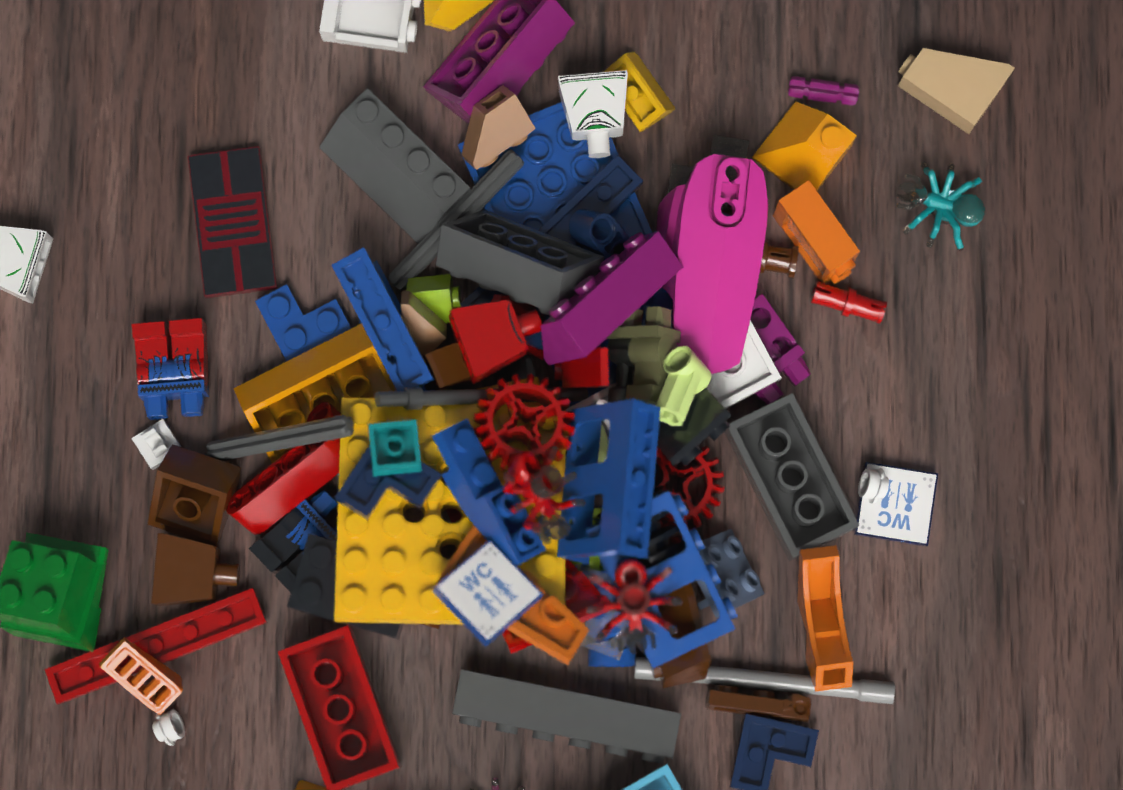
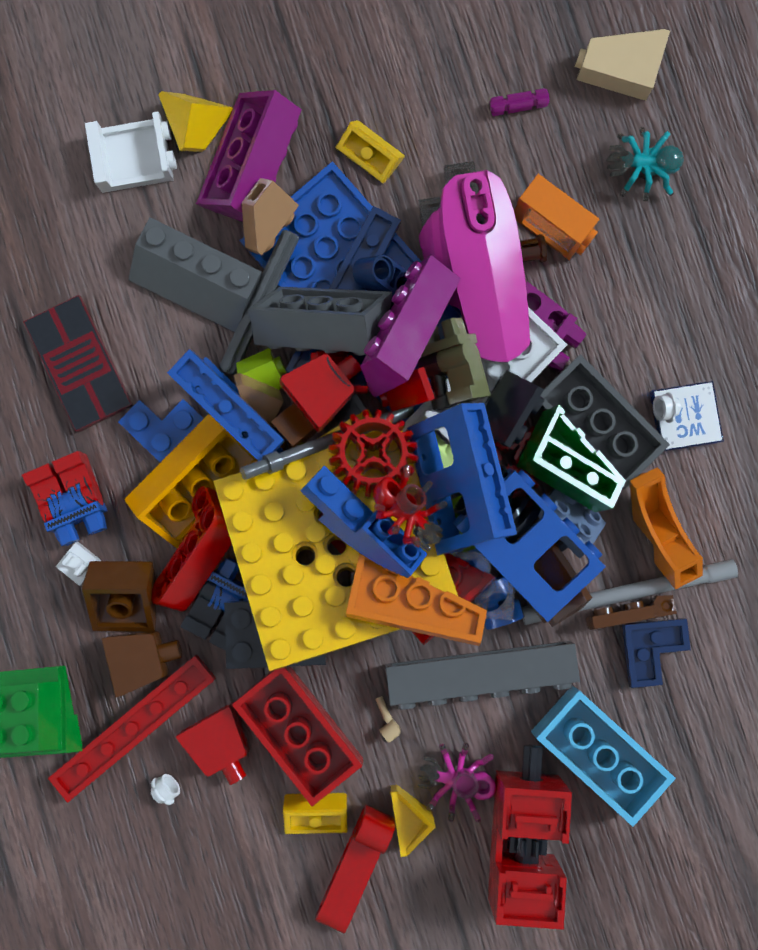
camera: 20 degrees left, 5 degrees up
(159, 692) = (145, 769): orange slope -> none
(245, 694) = (217, 743): none -> red torso
(281, 438) = (175, 529): dark grey axle -> none
(364, 492) = (266, 531): dark blue plate -> none
(394, 447) = (271, 511): teal piece -> none
(443, 746) = (391, 729): none -> tan hand
(487, 593) = (392, 609): white tile -> none
(594, 108) = (341, 172): white torso -> none
(634, 600) = (518, 574): animal -> none
(685, 378) = (493, 372): yellowish green piece -> none
(738, 508) = (569, 464): none -> green wedge
(804, 146) = (521, 150): light orange slope -> none
(848, 302) = (596, 266): red pin -> none

